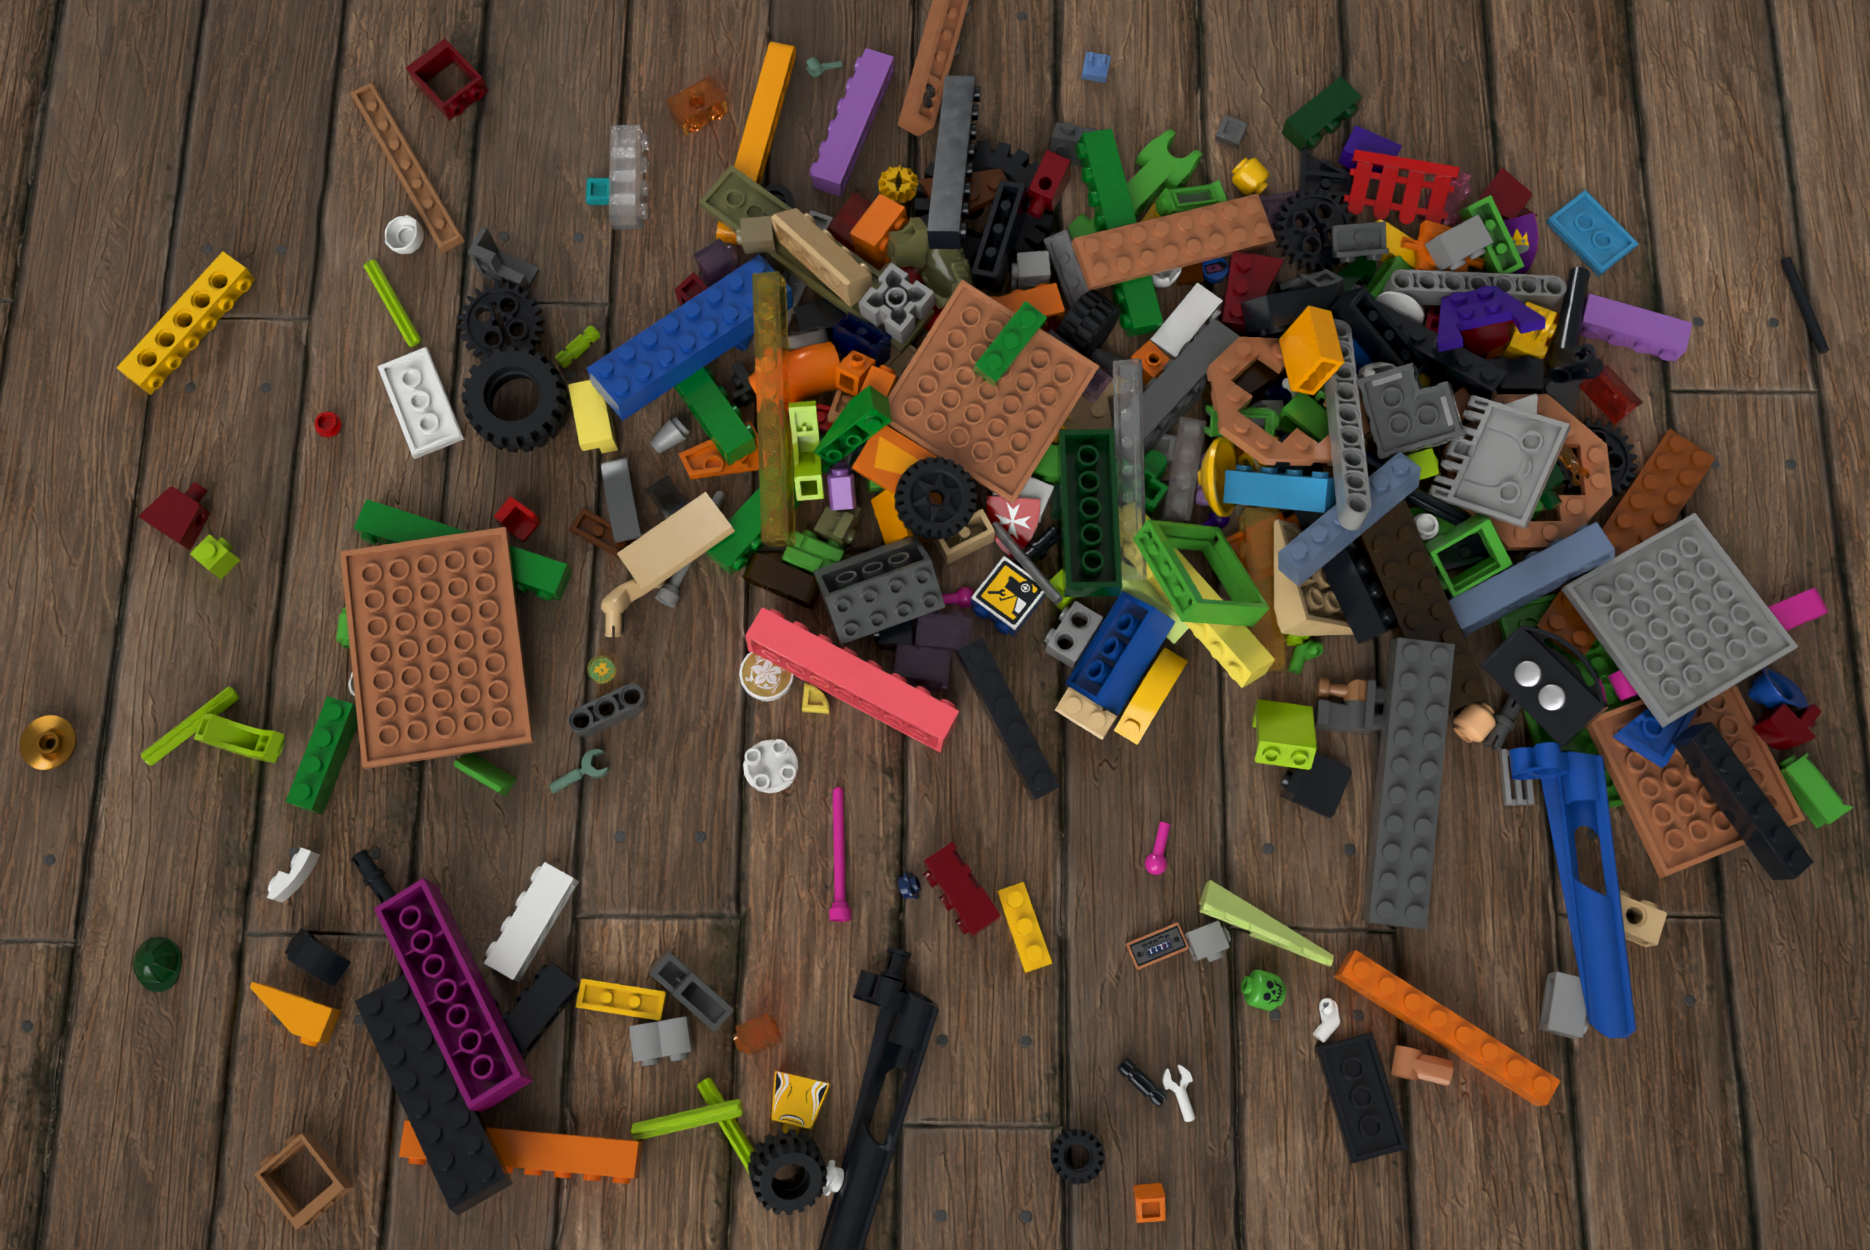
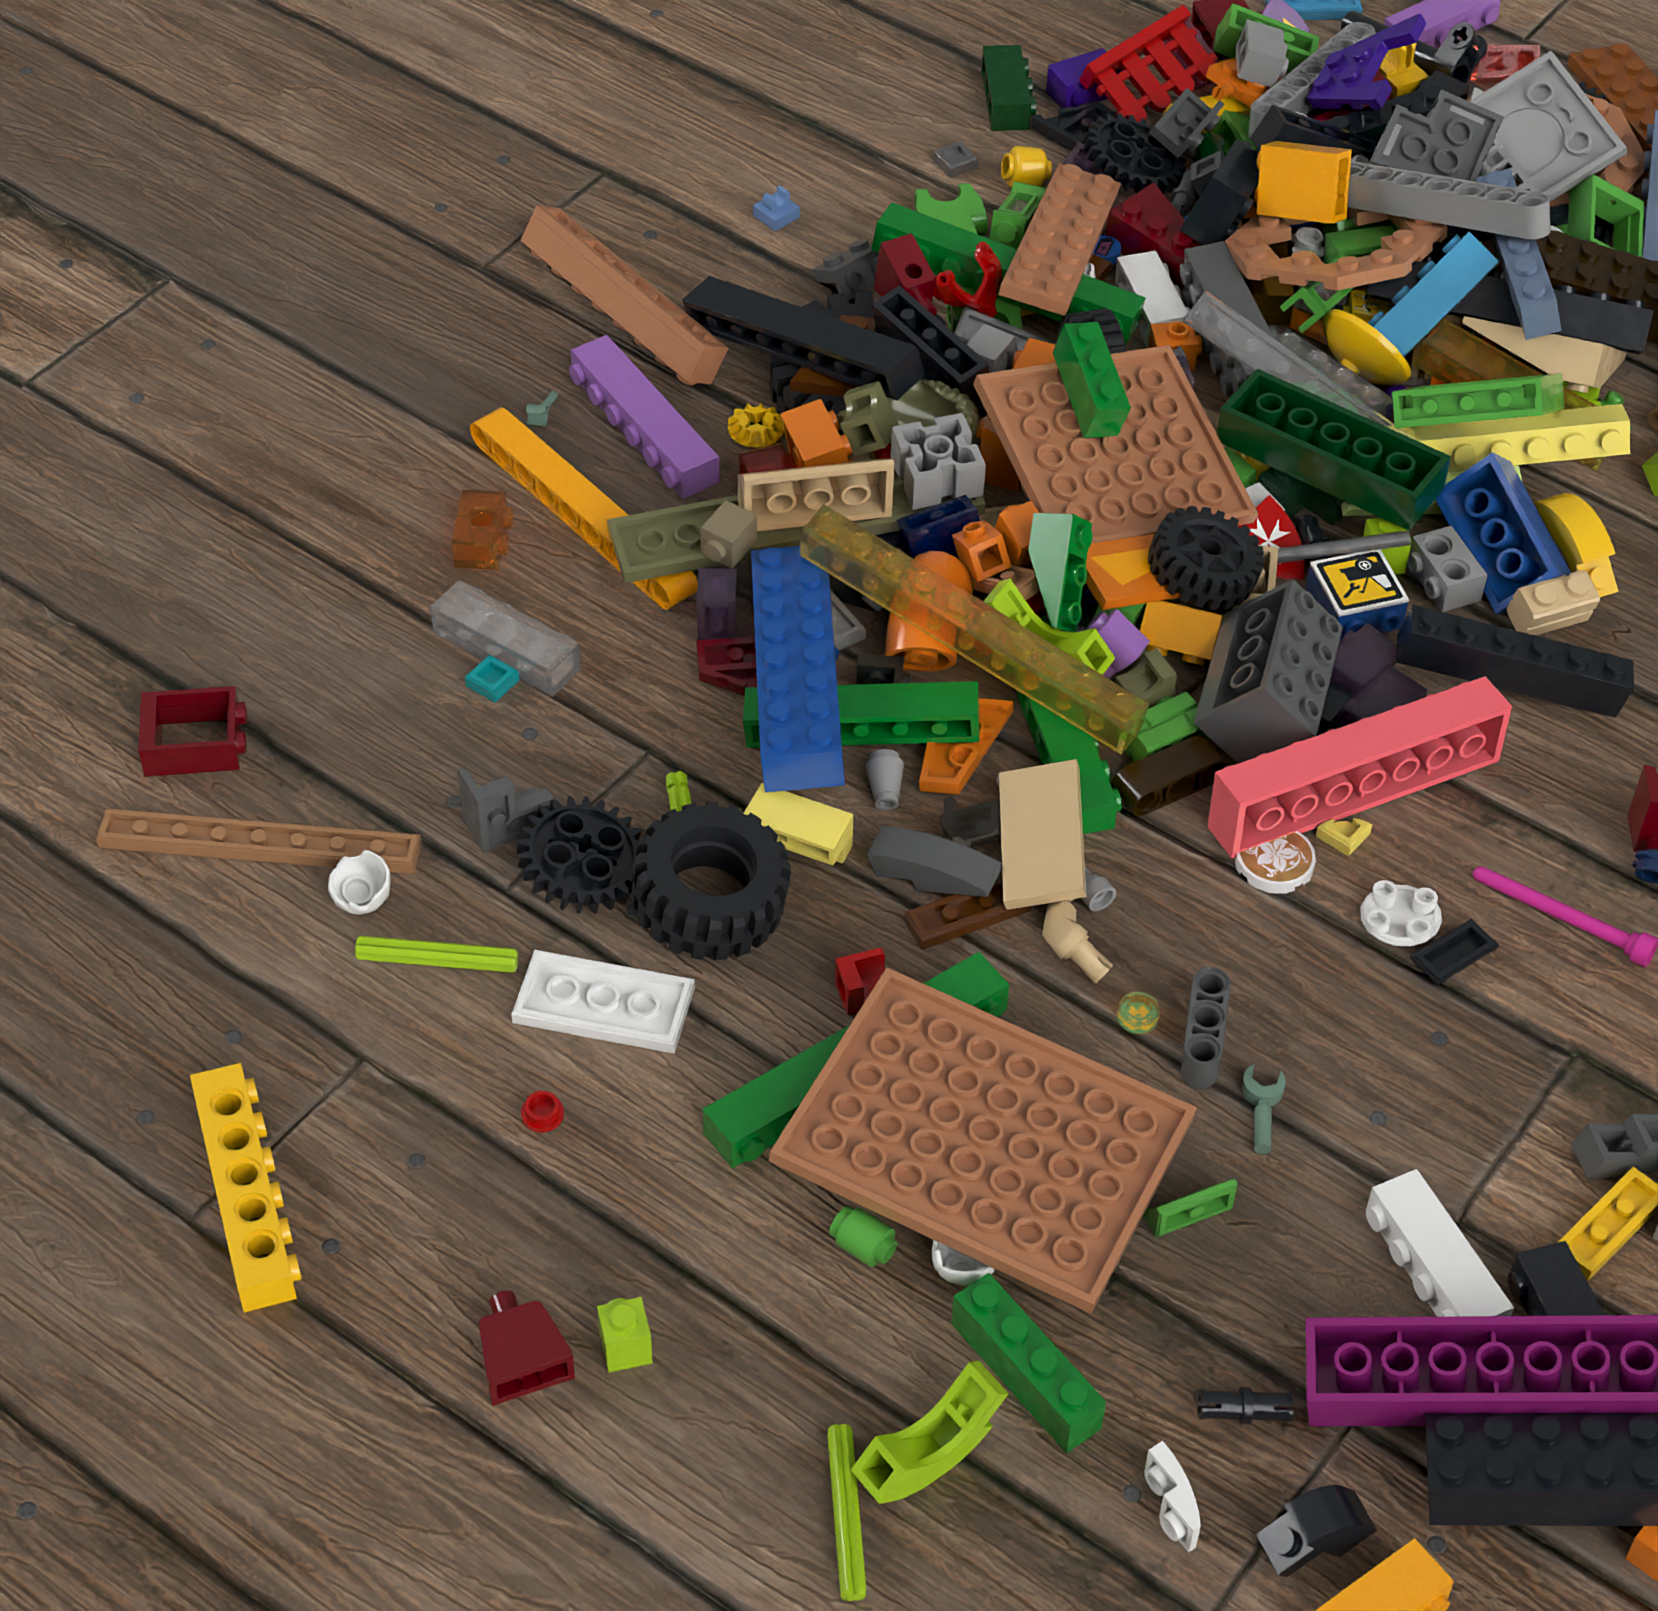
camera: 55 degrees left, 25 degrees down
(764, 810) = (1454, 952): none -> black tile
(1070, 217) = (986, 295): none -> red helmet

